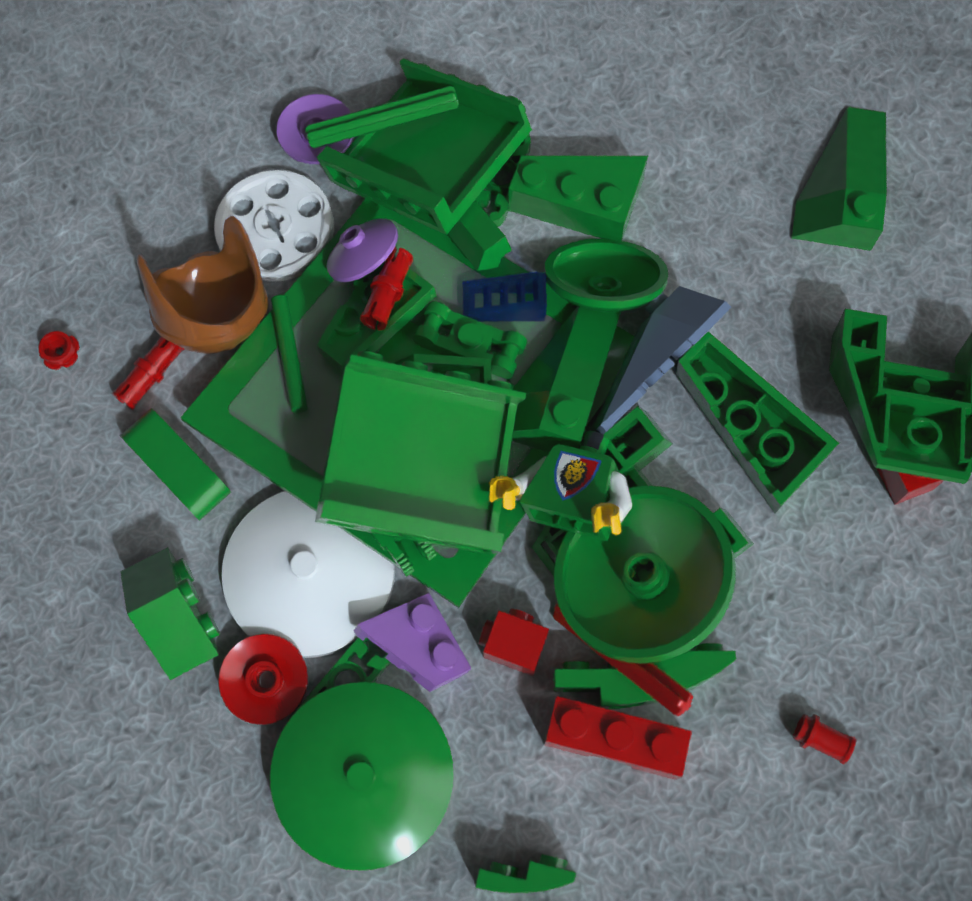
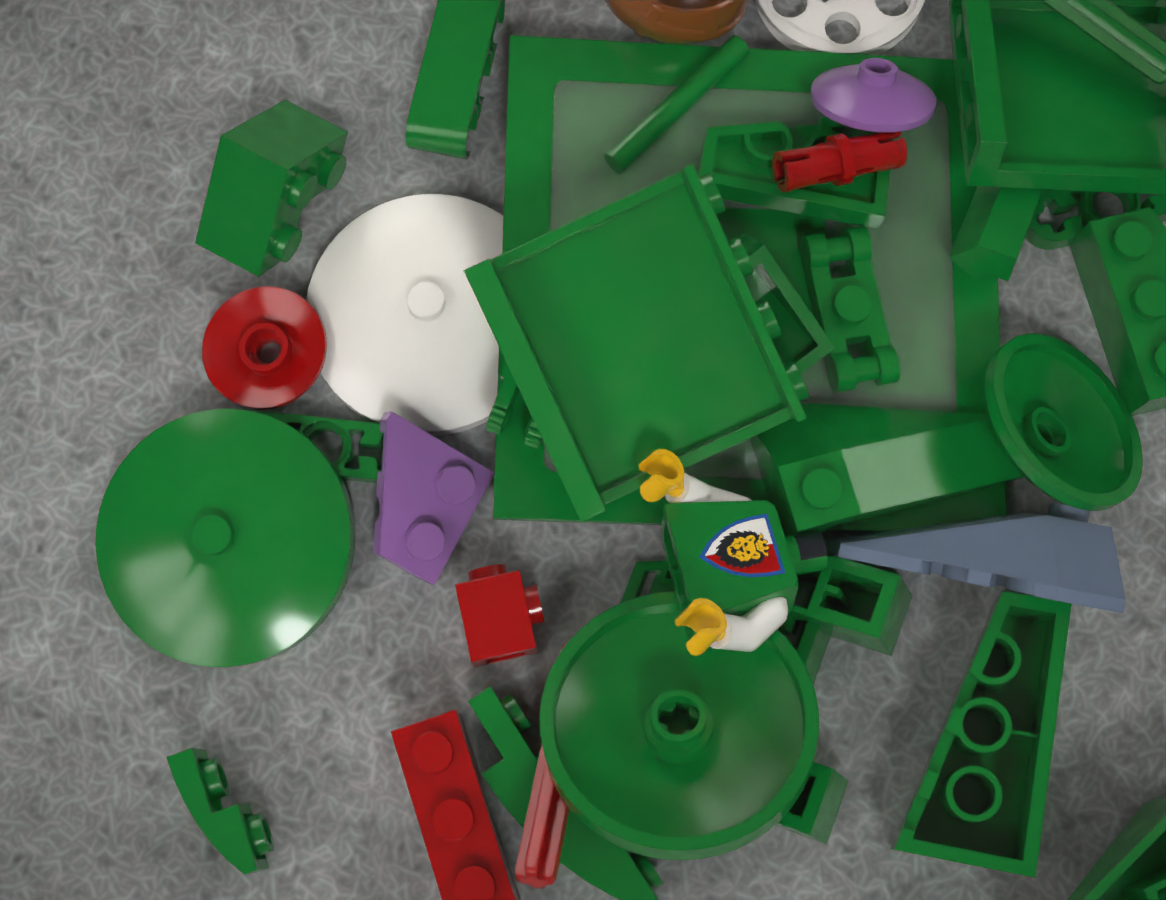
camera: 55 degrees right, 5 degrees up
(517, 283) = (968, 318): clear blue slope -> none

